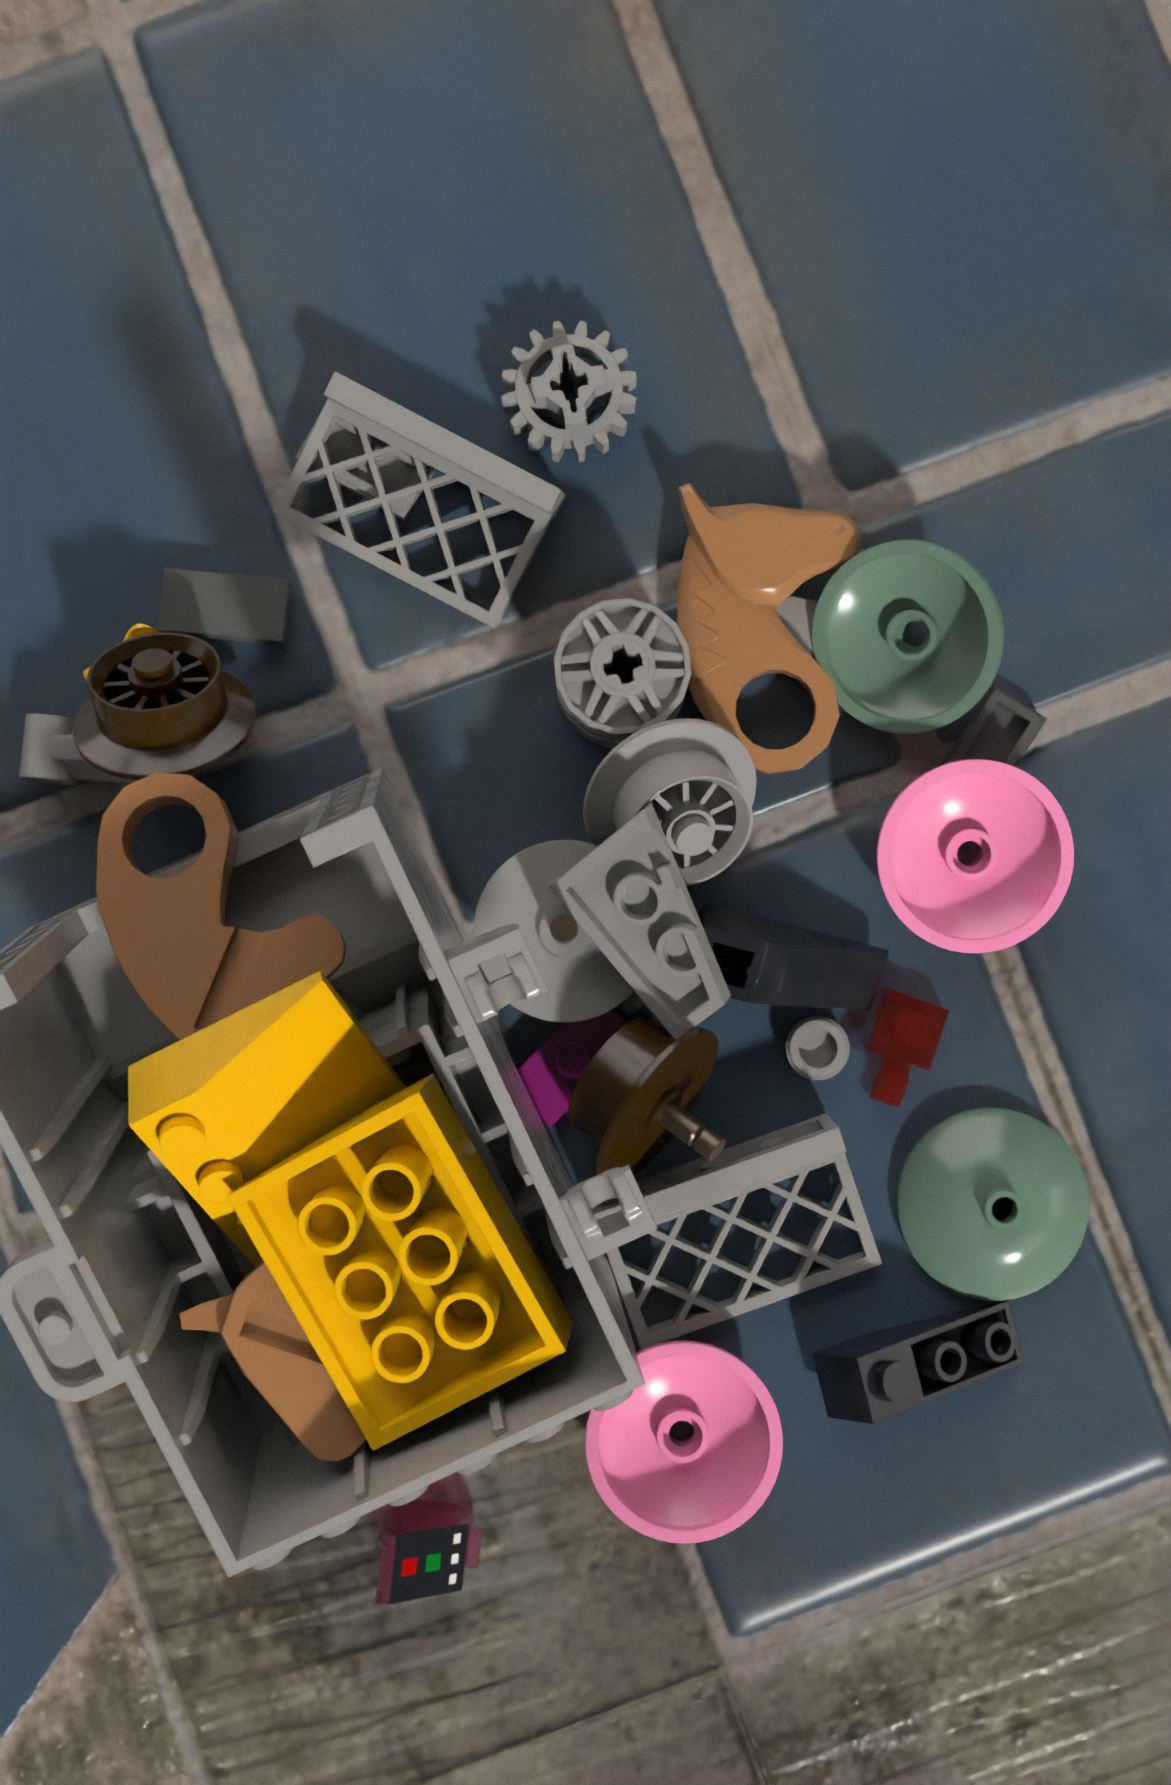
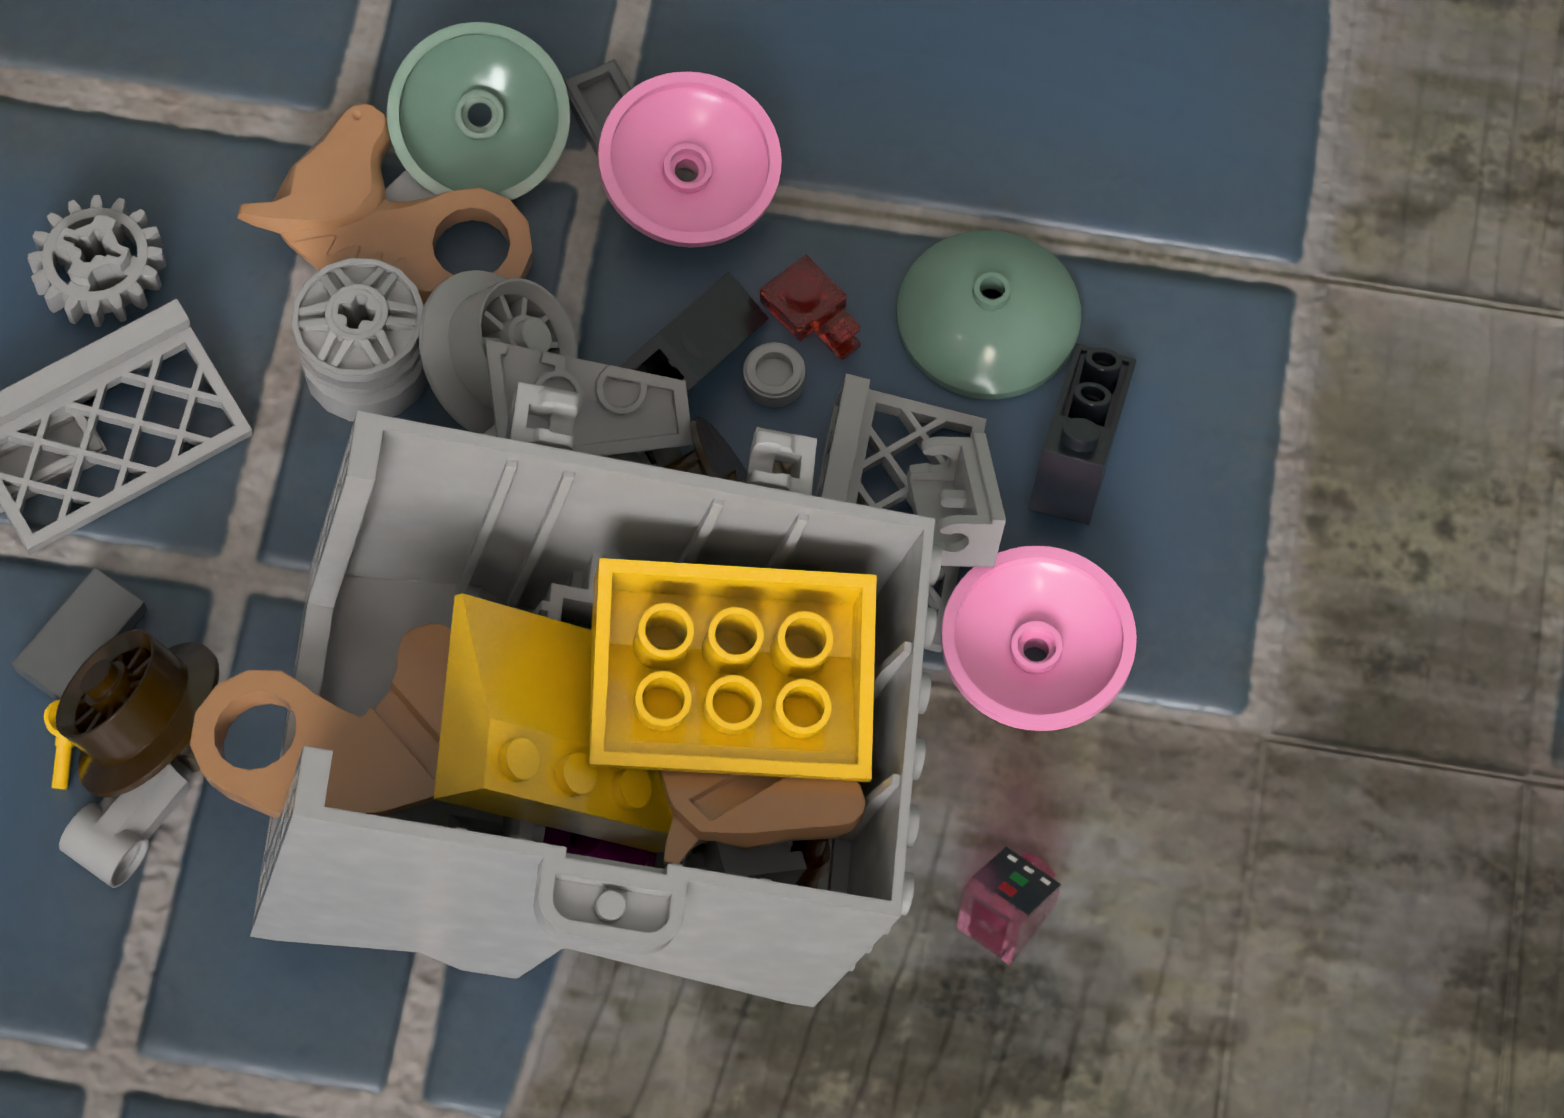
camera: 65 degrees left, 20 degrees down
(767, 1302) = (961, 498): none -> light grey hinge

